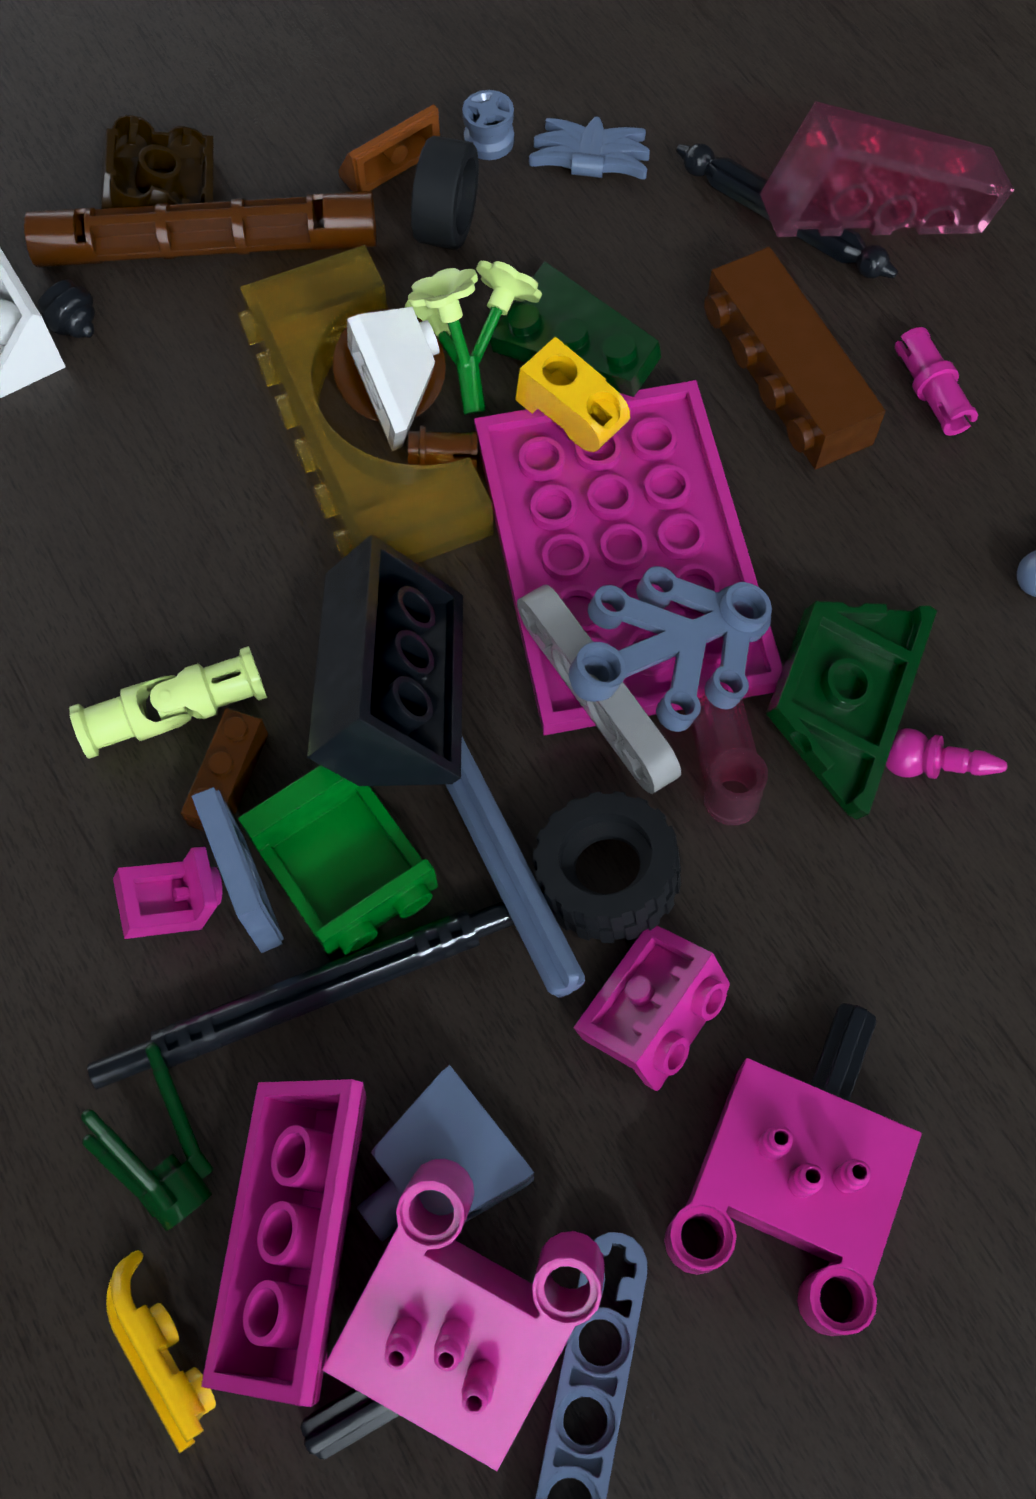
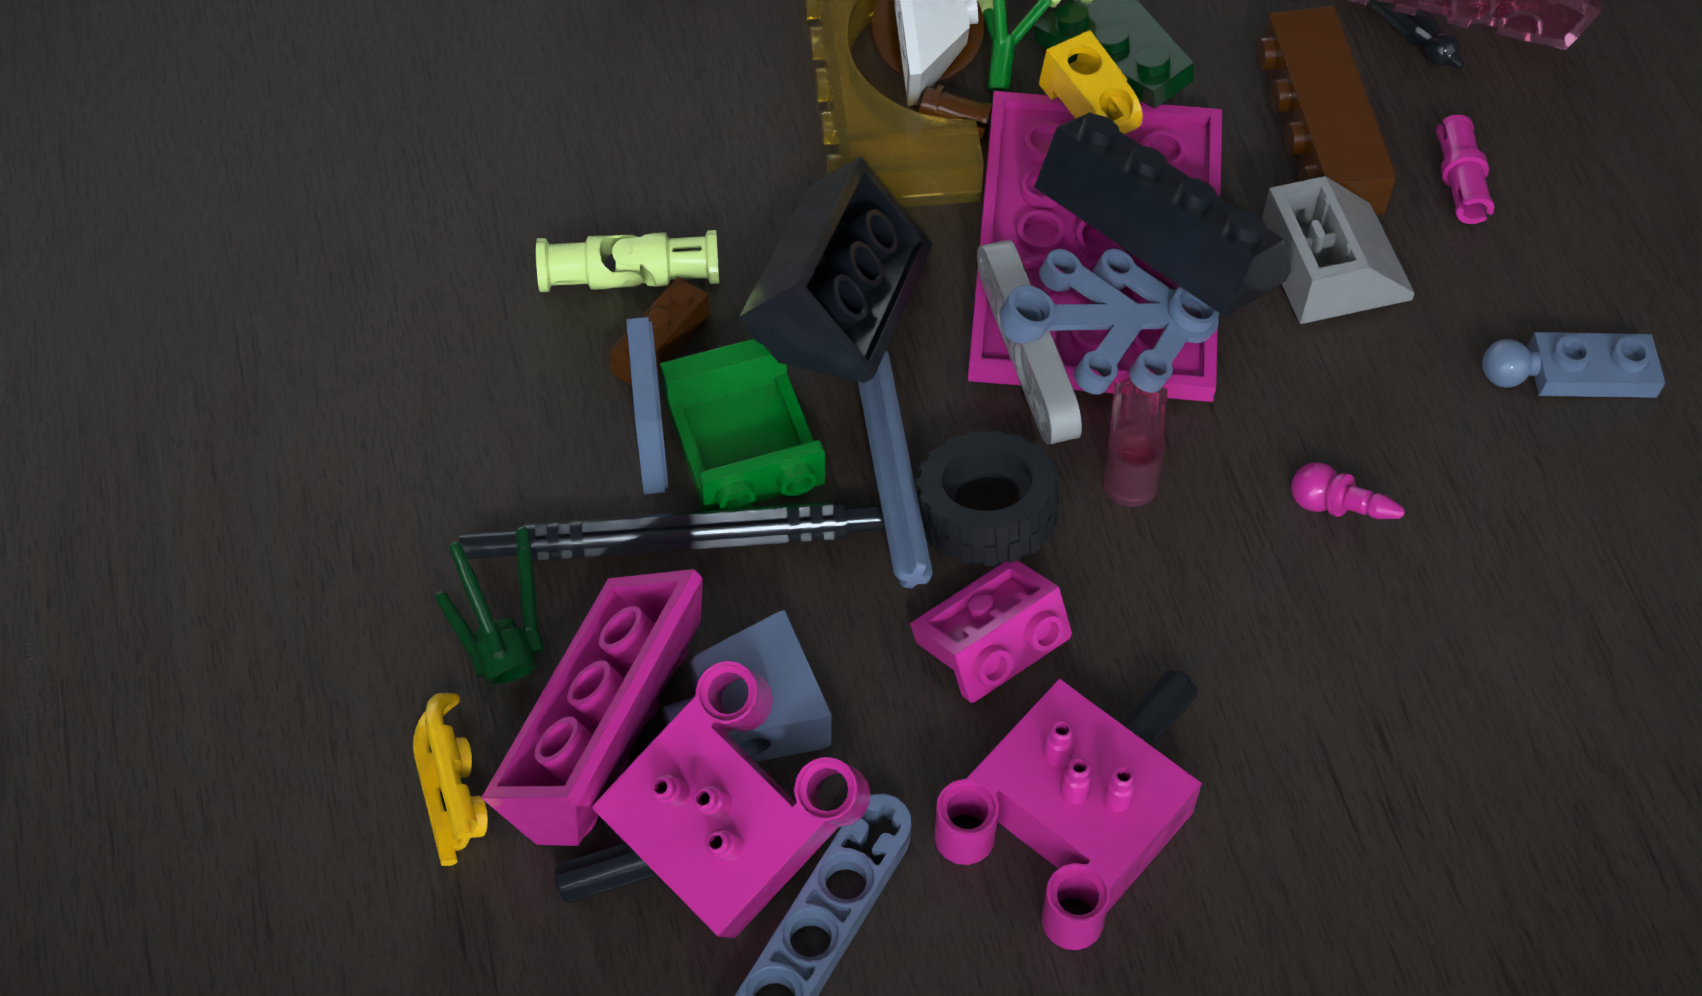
camera: 15 degrees right, 10 degrees down
(167, 895) = (576, 418): dark pink bracket -> none
(686, 519) = (1162, 214): none -> black slope
(844, 504) = (1333, 250): none -> light grey slope
(848, 692) = (1274, 412): dark green wing -> none

